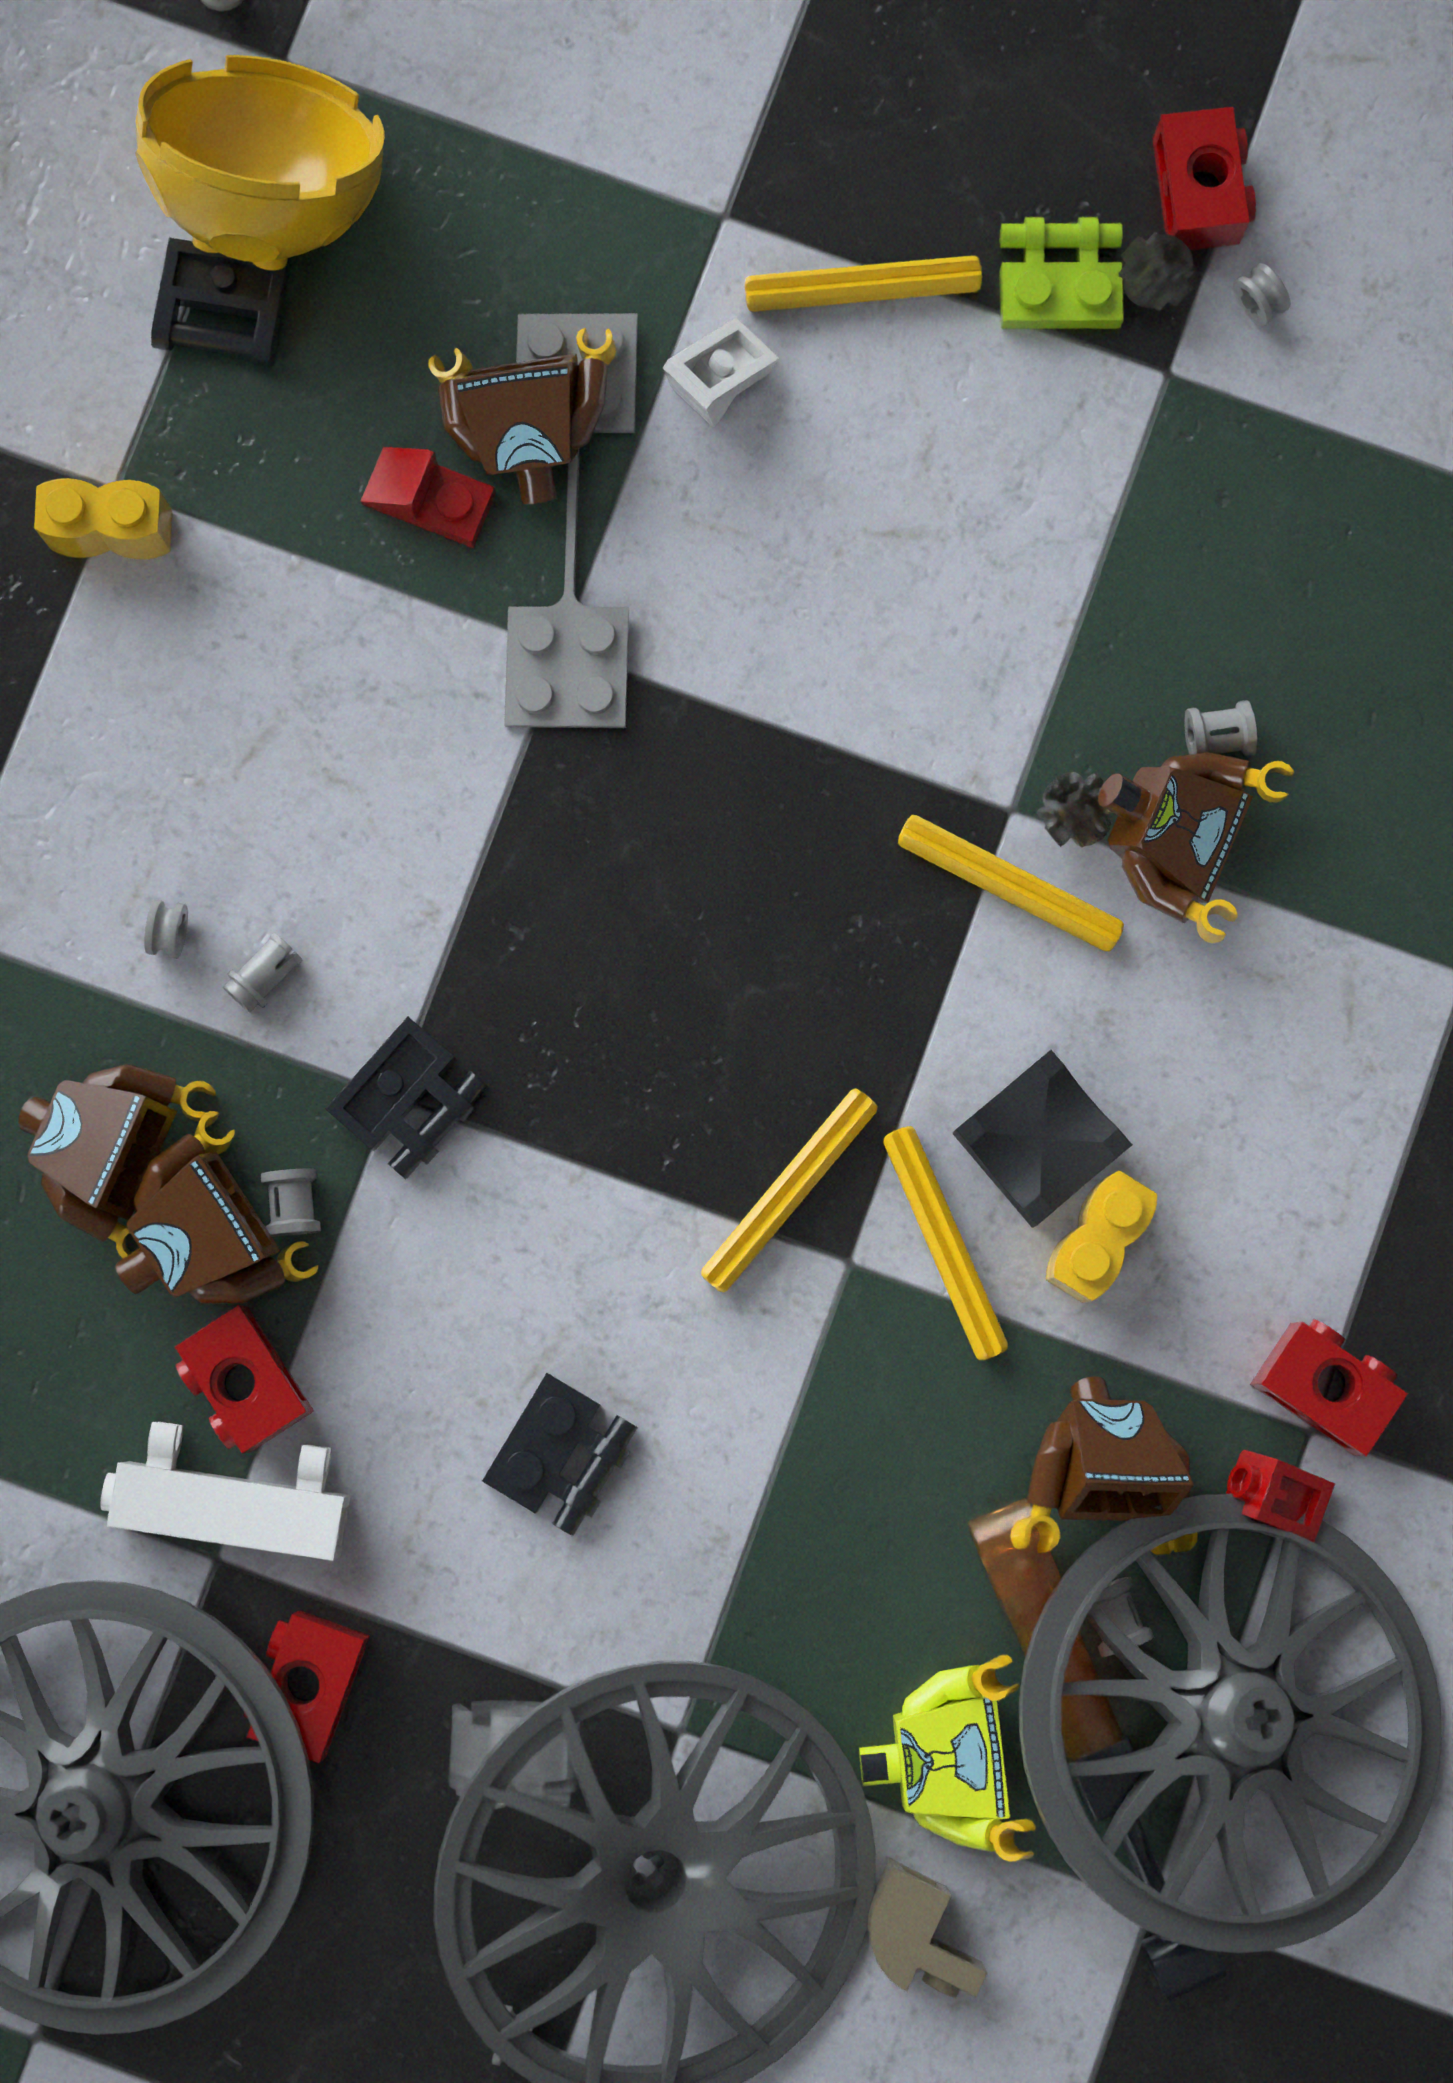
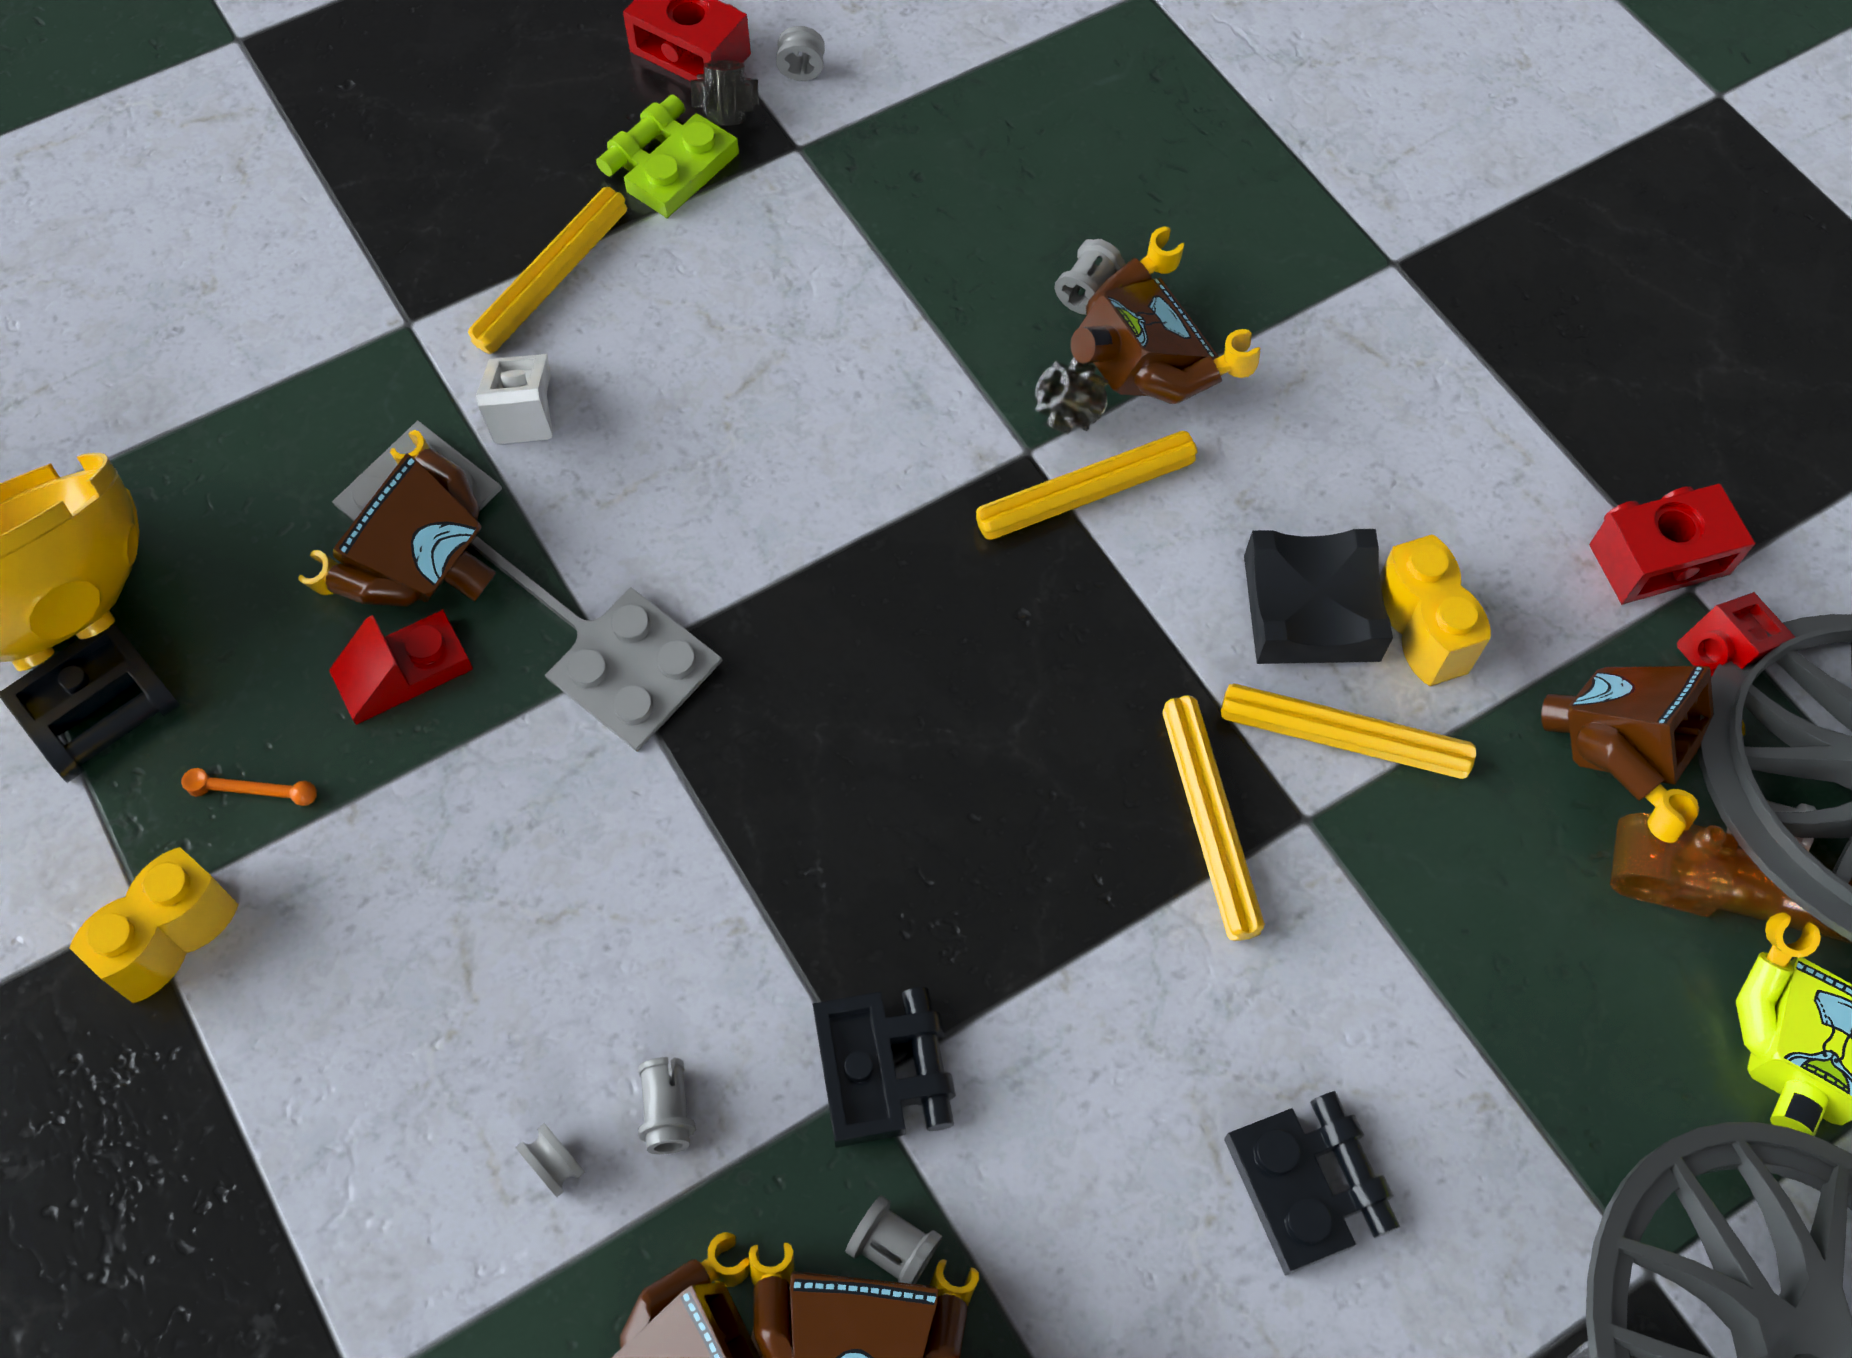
camera: 50 degrees left, 20 degrees down
(230, 438) = (198, 783): none -> orange hinge

